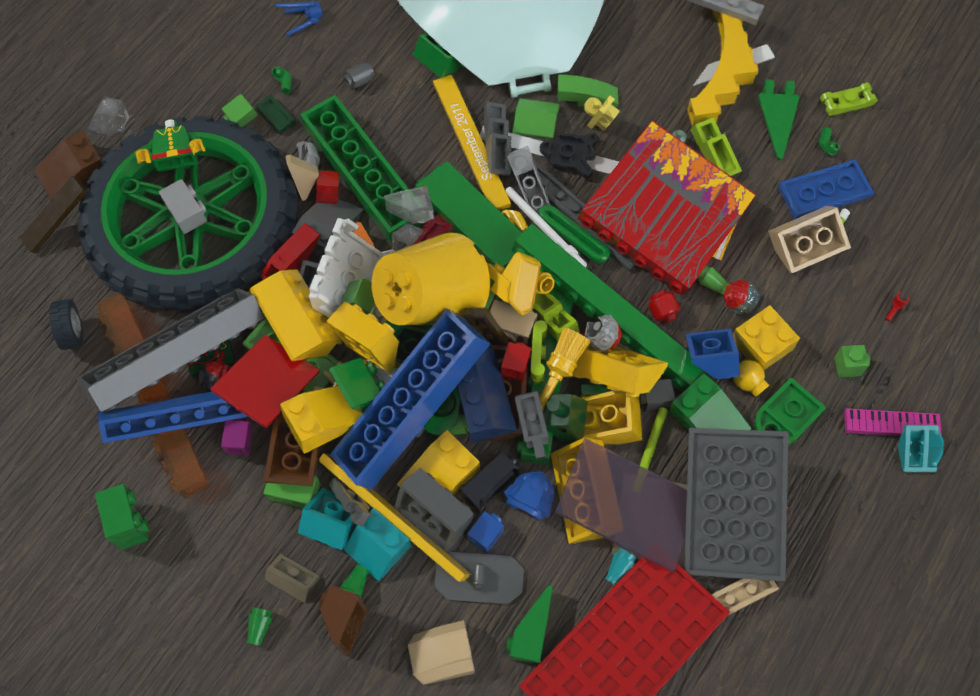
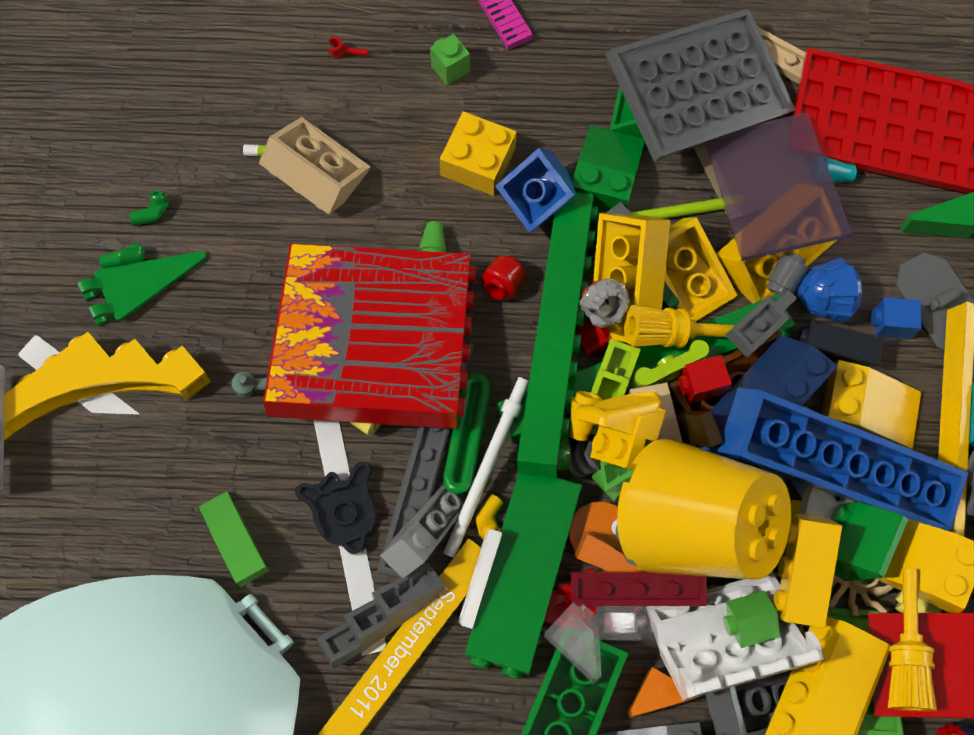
camera: 125 degrees left, 5 degrees up
(276, 360) = (911, 658): none -> yellow piece
(433, 509) = (920, 378): dark grey slope -> none
(484, 189) = (479, 578): none -> white tile
(535, 118) = (310, 587): bright green slope -> none
(557, 471) = (787, 274): none -> dark grey brick
(567, 417) = (721, 297): dark green torso -> none
(602, 114) = (264, 493): light yellow hips -> none
(715, 146) = (235, 331): lime slope -> none
(741, 297) = (440, 200): piece -> none
(751, 377) = (537, 137): yellow piece -> none
(789, 410) = (548, 98): green tile -> none
(800, 112) = (124, 256): none -> green arm
(826, 187) = (224, 184): blue tile -> none
(848, 99) = (67, 214): lime plate -> none

